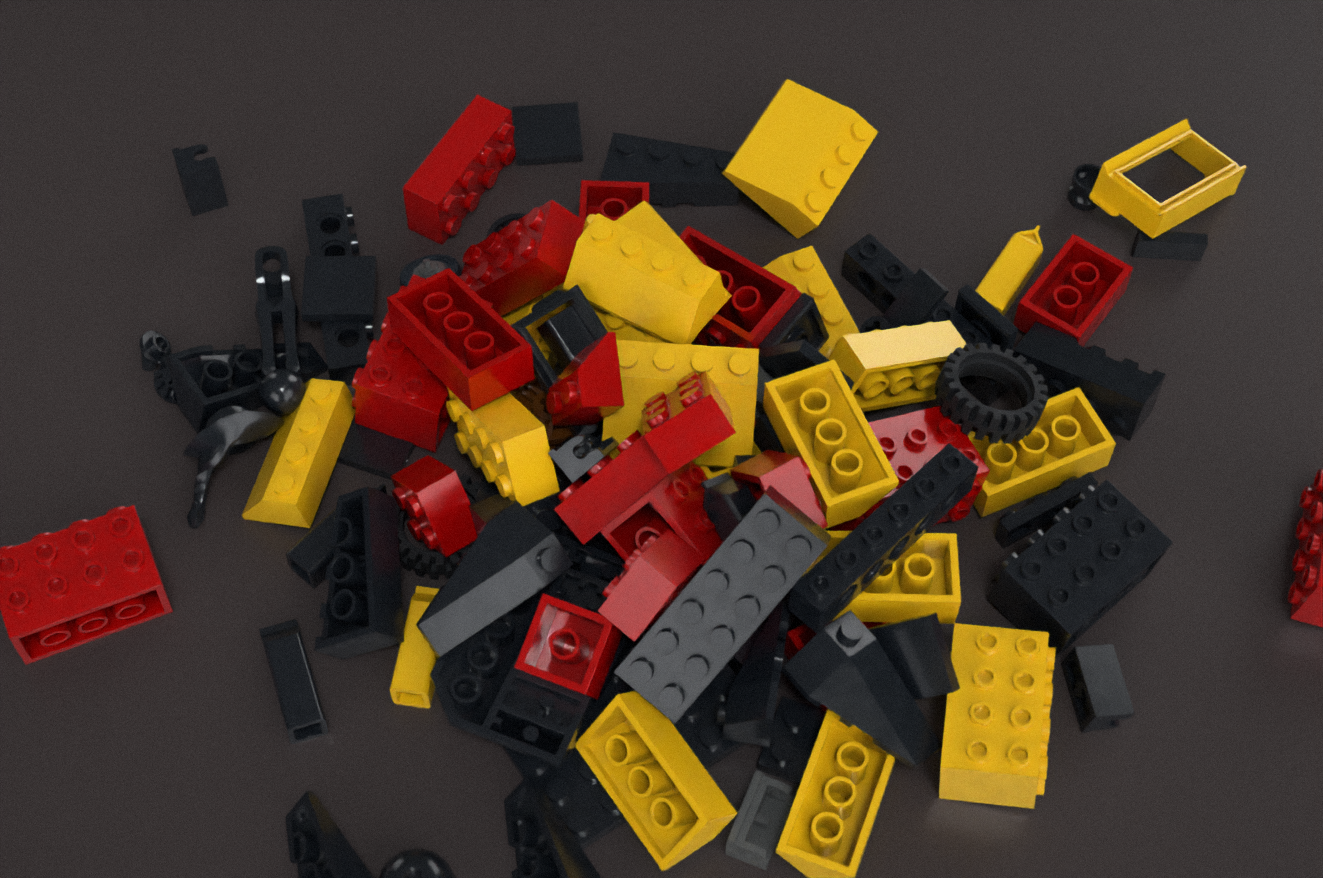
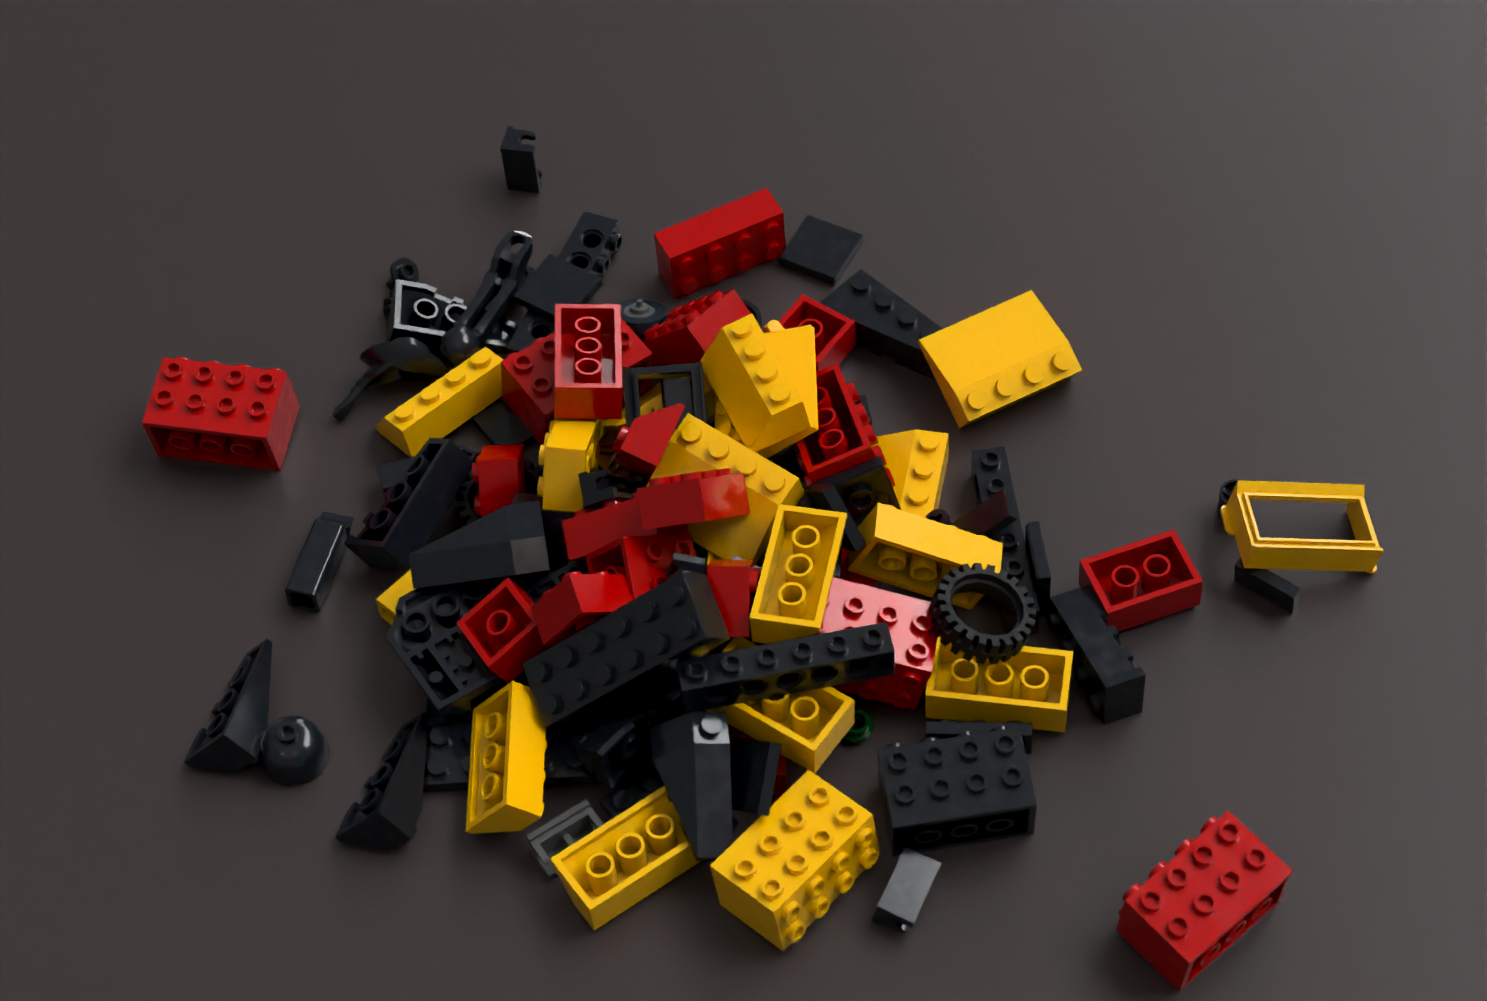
camera: 40 degrees right, 5 degrees down
(1012, 270) = (1101, 536): yellow piece -> none

